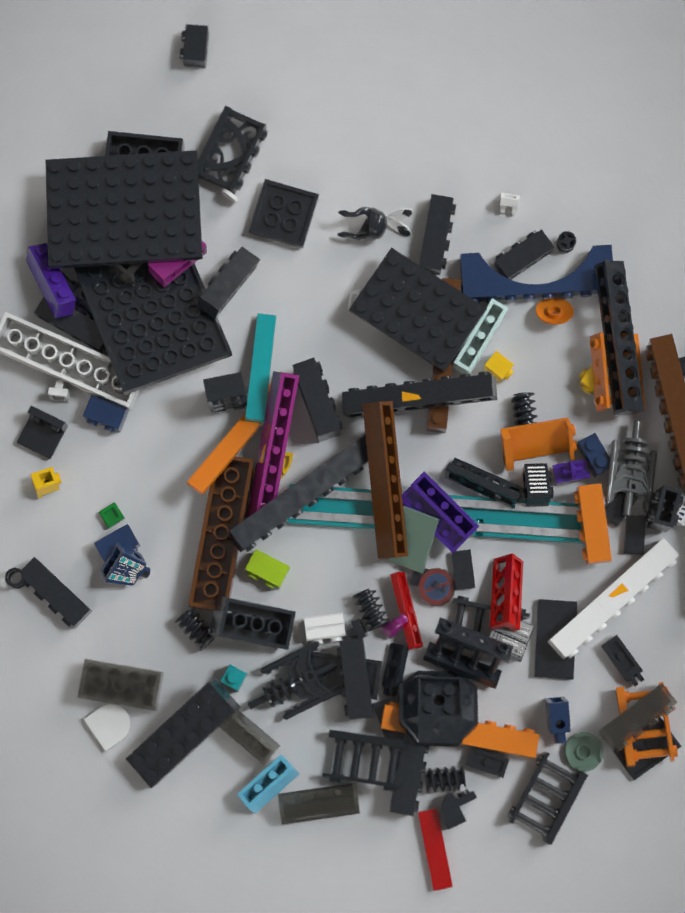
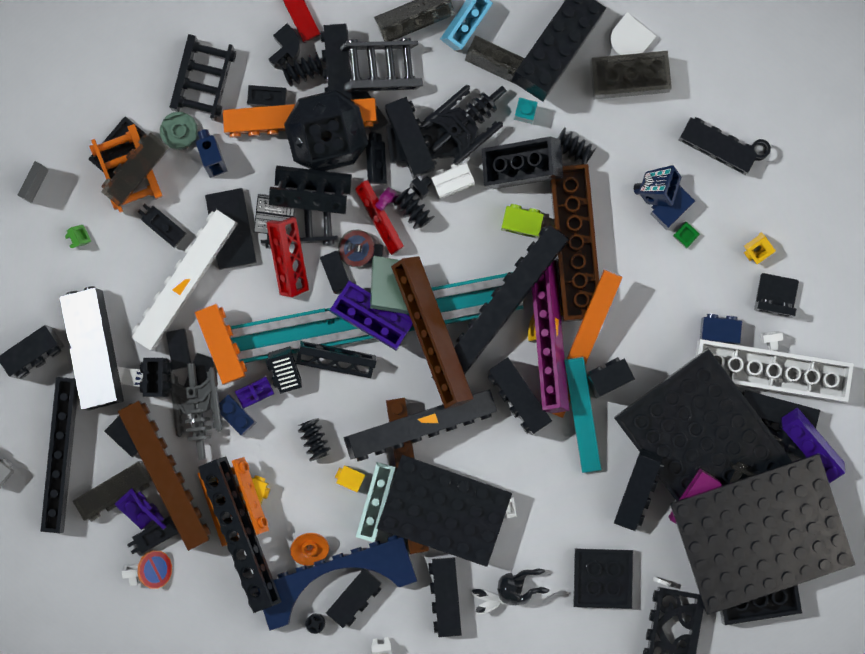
camera: 170 degrees right, 5 degrees up
(537, 440) = (295, 413): orange panel -> none

